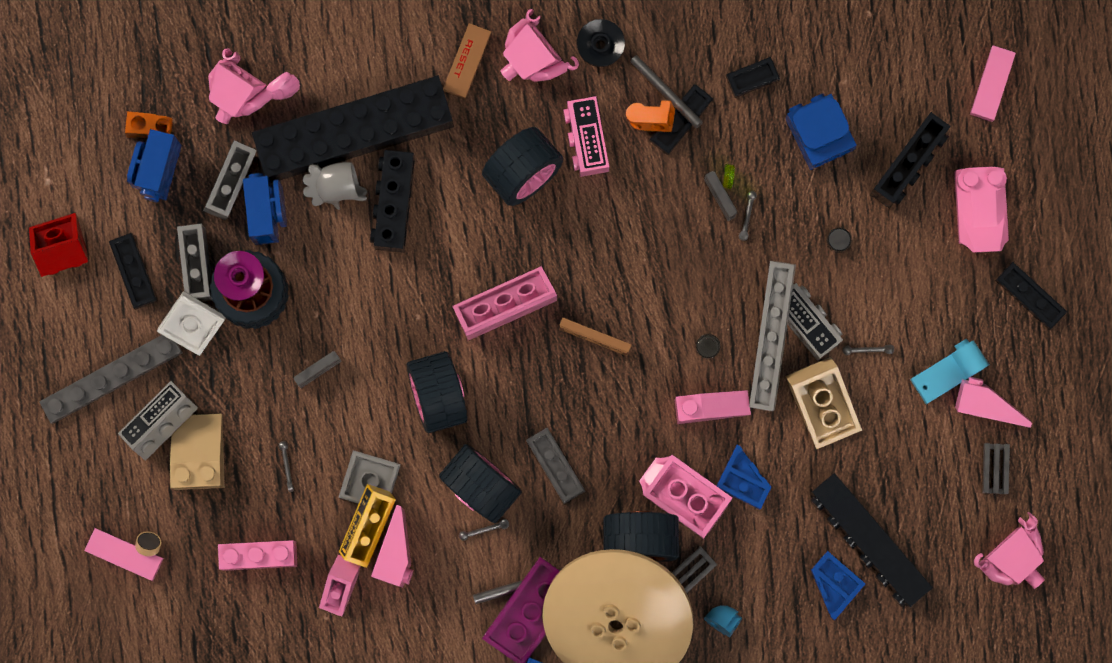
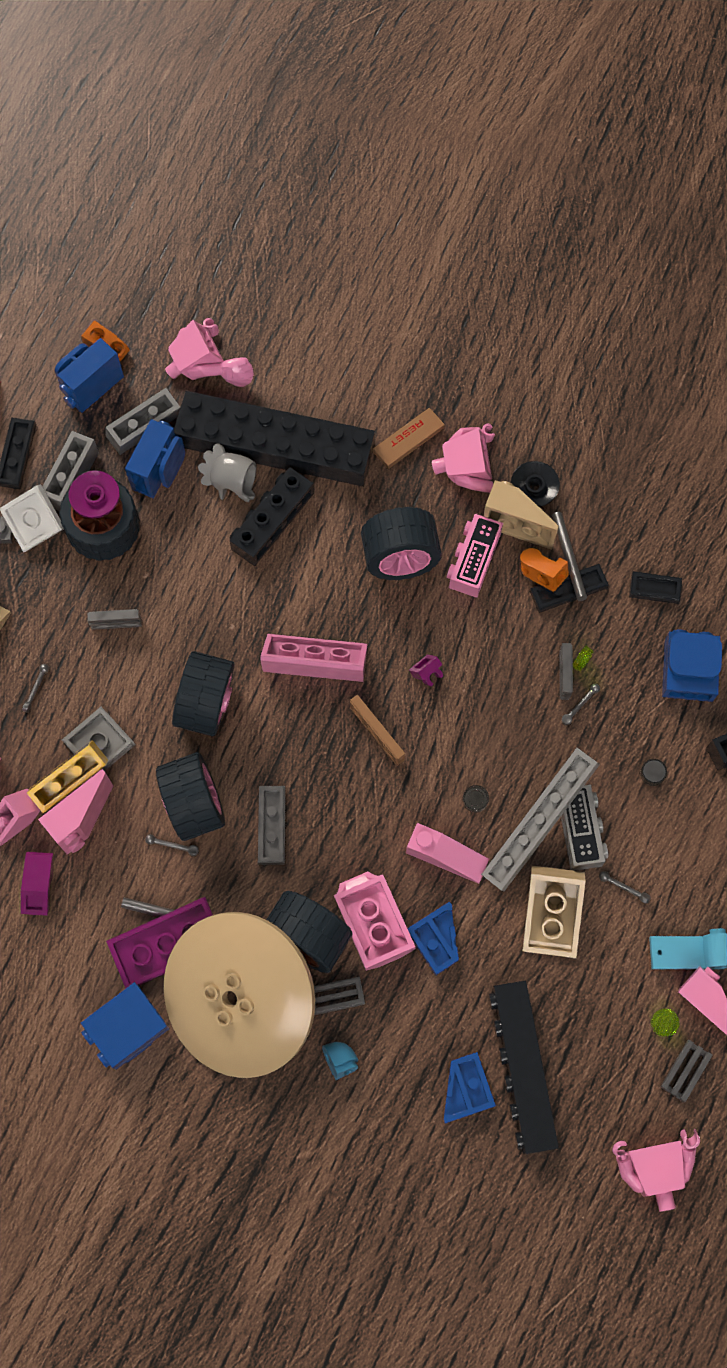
camera: 30 degrees right, 10 degrees down
(396, 626) = (36, 883): none -> magenta slope
(604, 259) = (425, 667): none -> magenta tile
(605, 81) = (520, 515): none -> tan slope
(959, 440) = (665, 1022): none -> clear neon green tile

